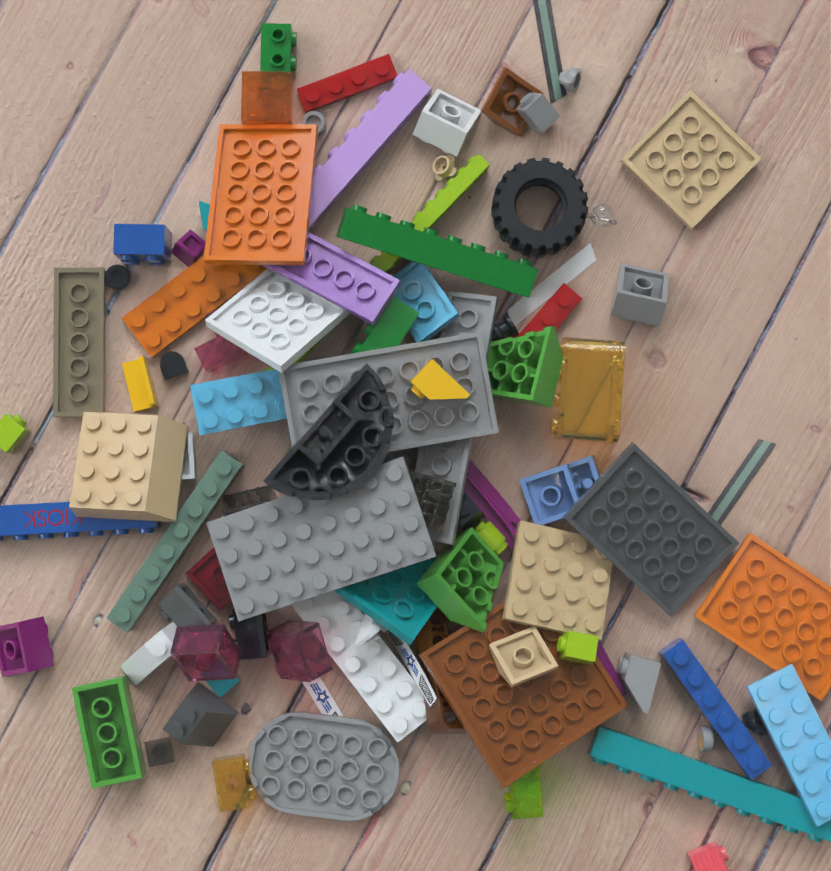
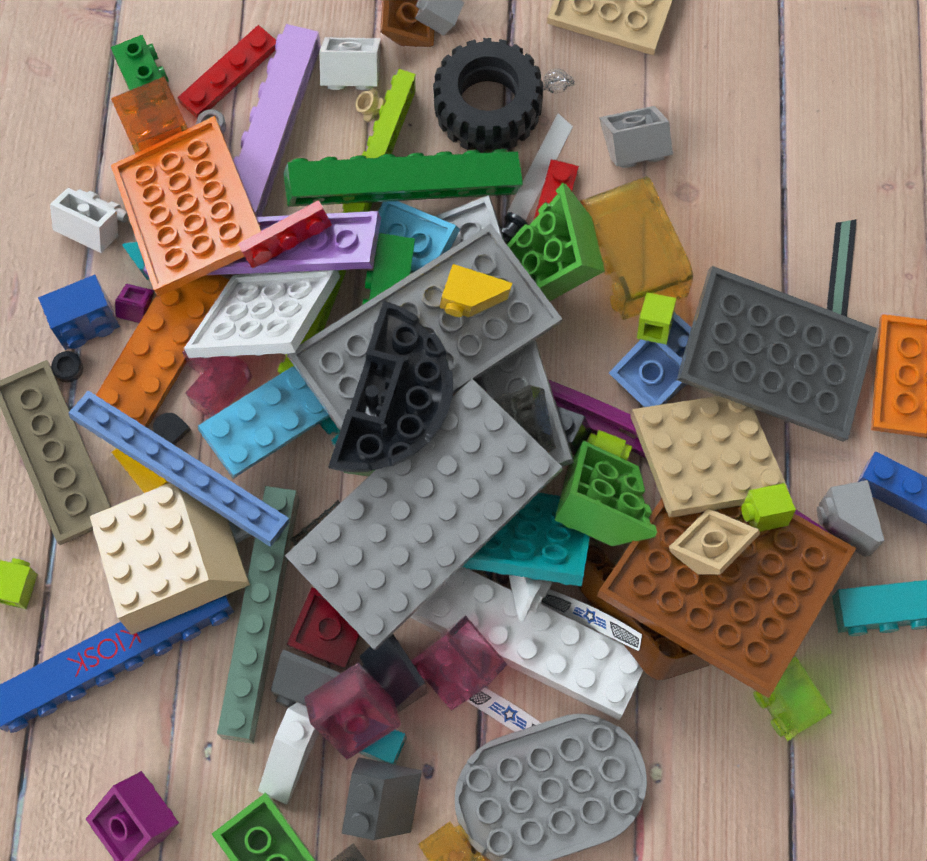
camera: 25 degrees left, 15 degrees down
(162, 409) = (179, 468): none -> medium blue plate
(183, 163) = (86, 218): none -> white brick
(320, 266) = (285, 234): none -> red plate
(573, 460) = (656, 318): none -> lime brick

